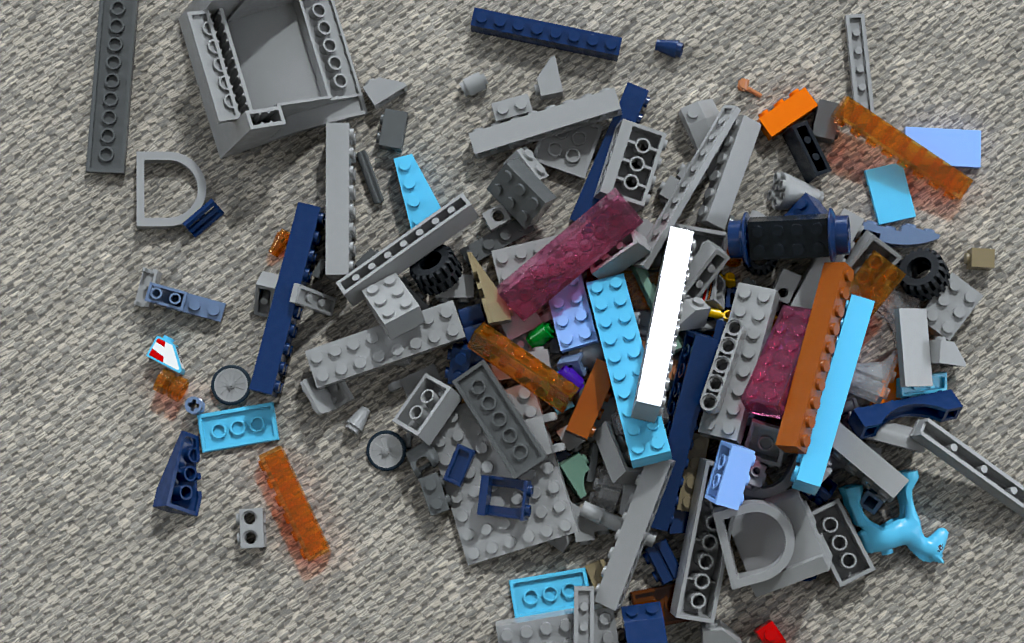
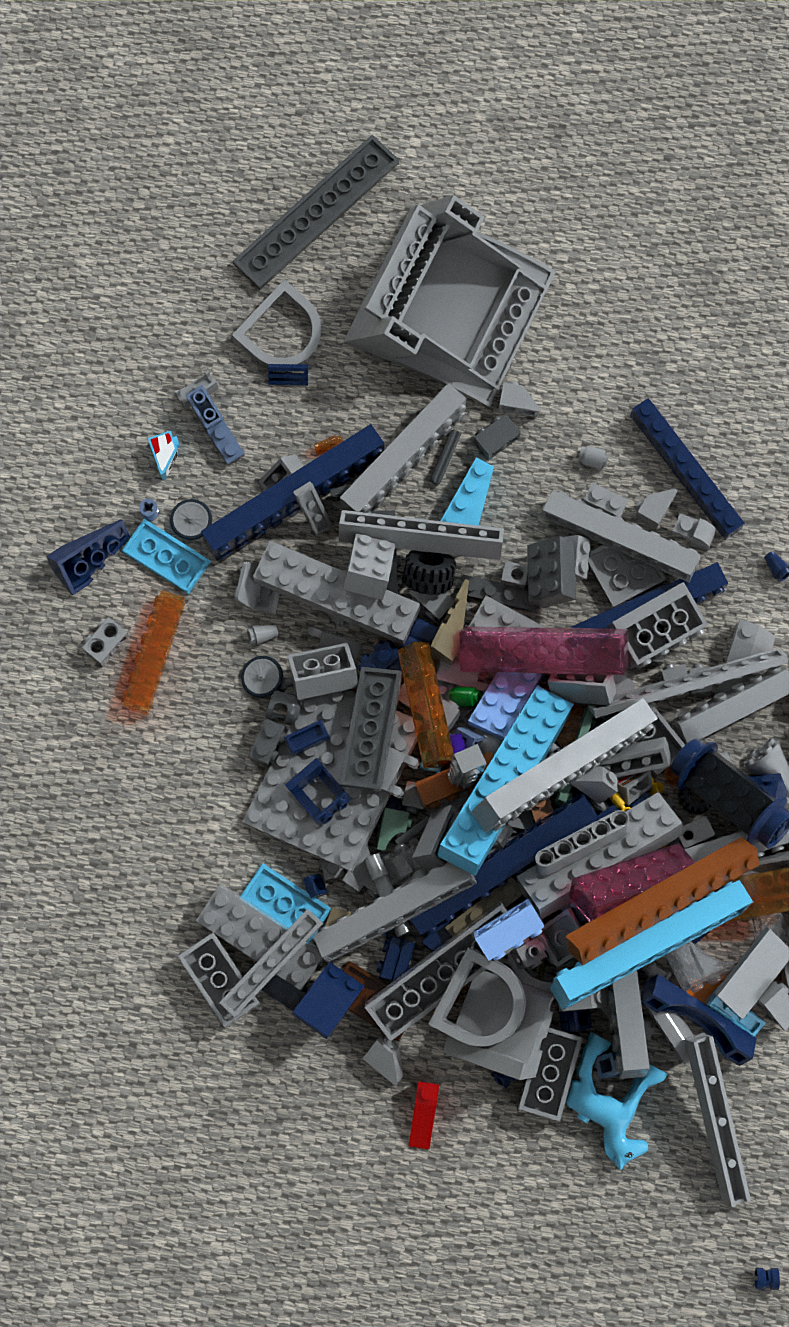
camera: 40 degrees right, 5 degrees down
(177, 387) = (145, 475): clear orange wheel -> none
(560, 562) = (315, 885): none -> dark blue plate
(595, 73) = (697, 531): none -> light grey brick
(597, 388) = (466, 767): none -> light grey brick

